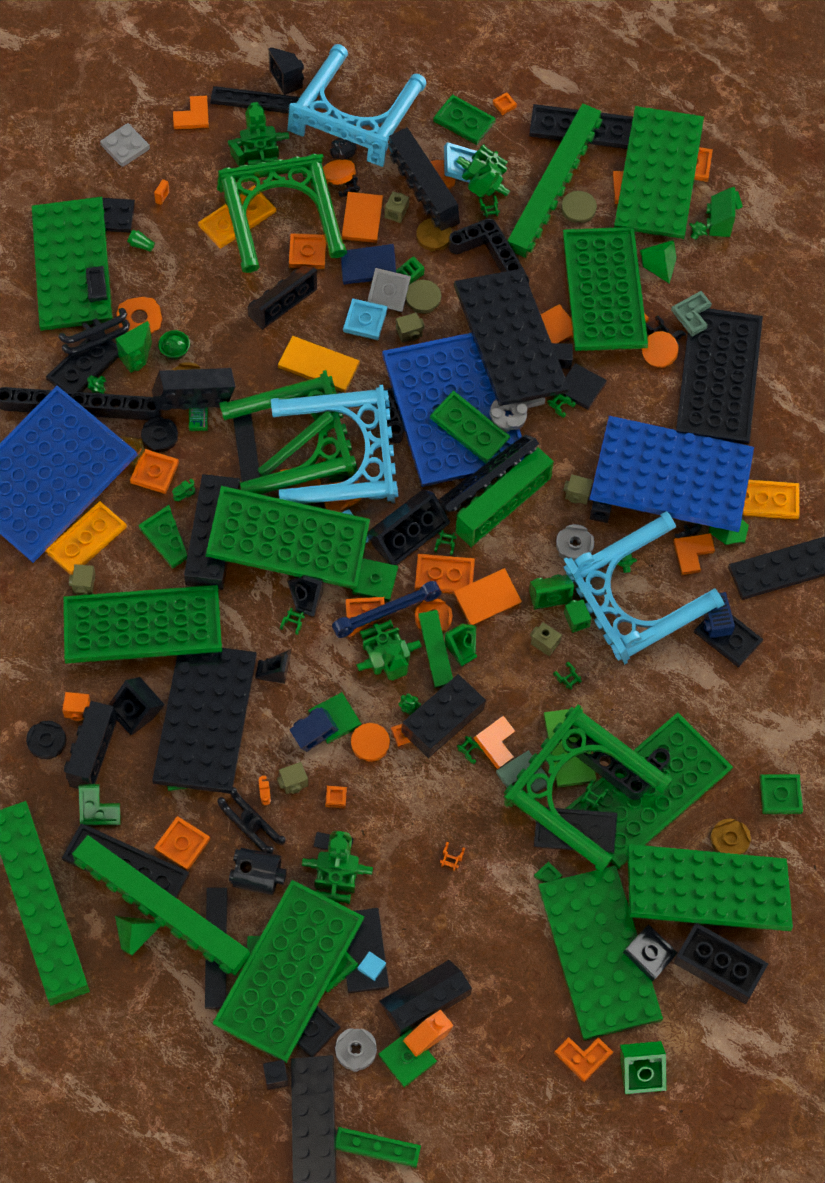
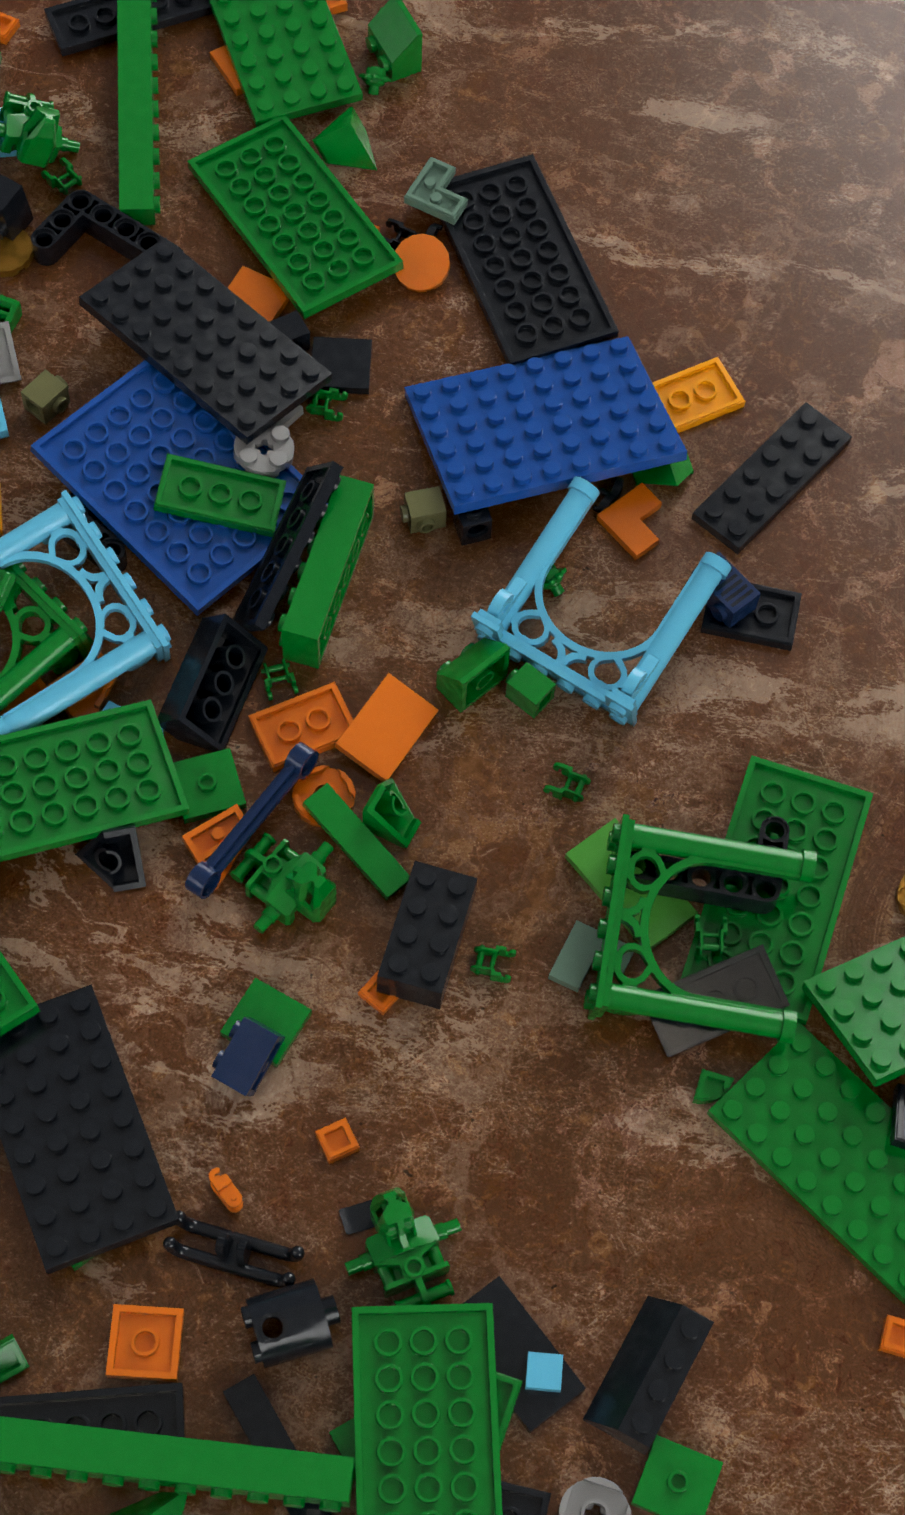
camera: 30 degrees left, 0 degrees up
(274, 668) = (131, 994): black slope -> none
(286, 619) = (116, 897): green piece -> none
(292, 778) = (258, 1148): olive brick -> none
(370, 742) = (340, 1030): orange tile -> none
(409, 703) = (366, 943): green plant -> none
(423, 296) = (40, 344): olive tile -> none
(428, 1033) = (689, 1428): orange slope -> none
(458, 858) = (570, 1136): orange piece -> none
(491, 741) = (519, 938): tile -> none
(545, 638) = (504, 745): olive brick -> none
(571, 533) = (458, 604): light grey plate -> none
(579, 206) = (190, 121): olive tile -> none

